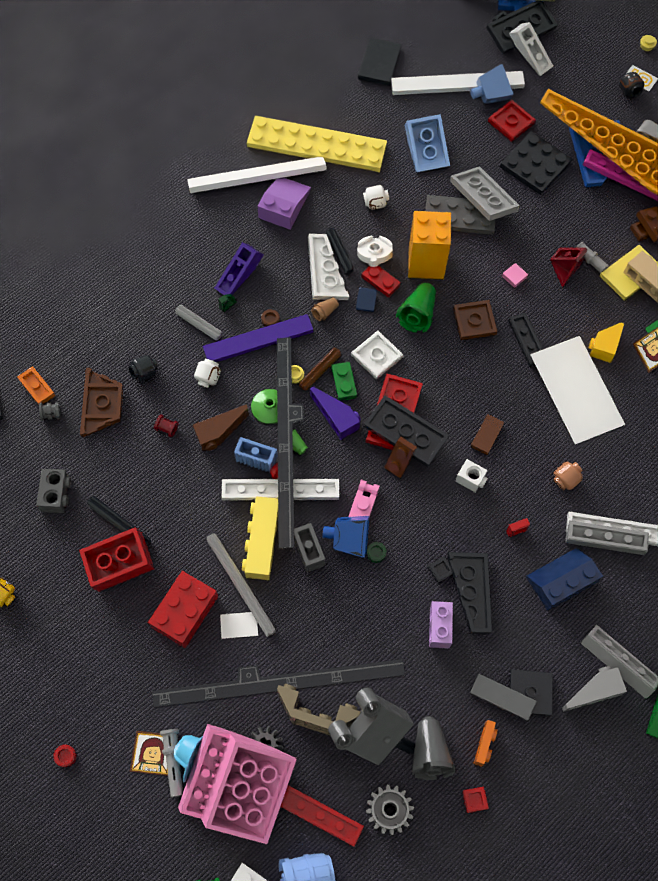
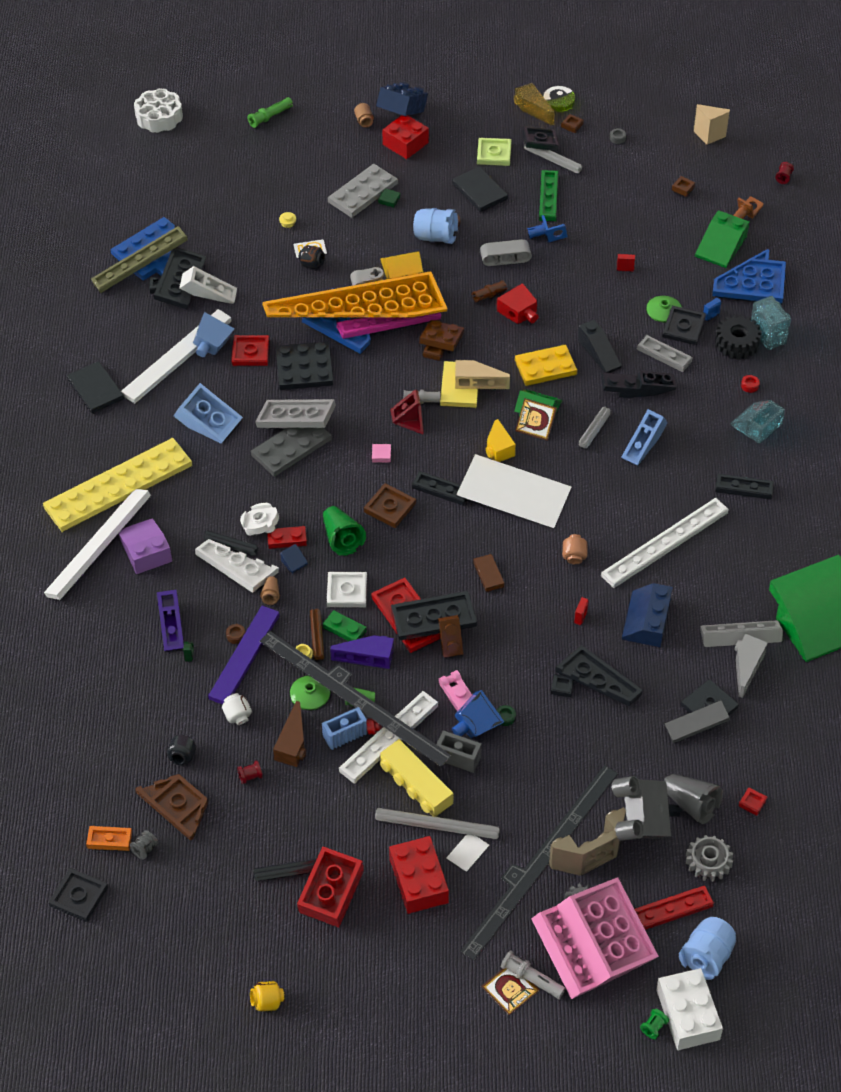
camera: 45 degrees left, 15 degrees down
(48, 491) = (214, 895): dark grey brick -> none
(64, 755) = (451, 1051): red tile -> none
(186, 752) = (539, 954): medium azure piece -> none
(198, 322) = (183, 683): light grey axle -> none
(376, 197) = (215, 483): white head -> none
(429, 244) = (303, 477): light orange brick -> none
(440, 624) = (605, 716): lavender brick -> none
(471, 468) = (511, 607): white brick -> none
(483, 752) = (720, 762): orange plate -> none
(607, 537) = (645, 565): light grey slope -> none

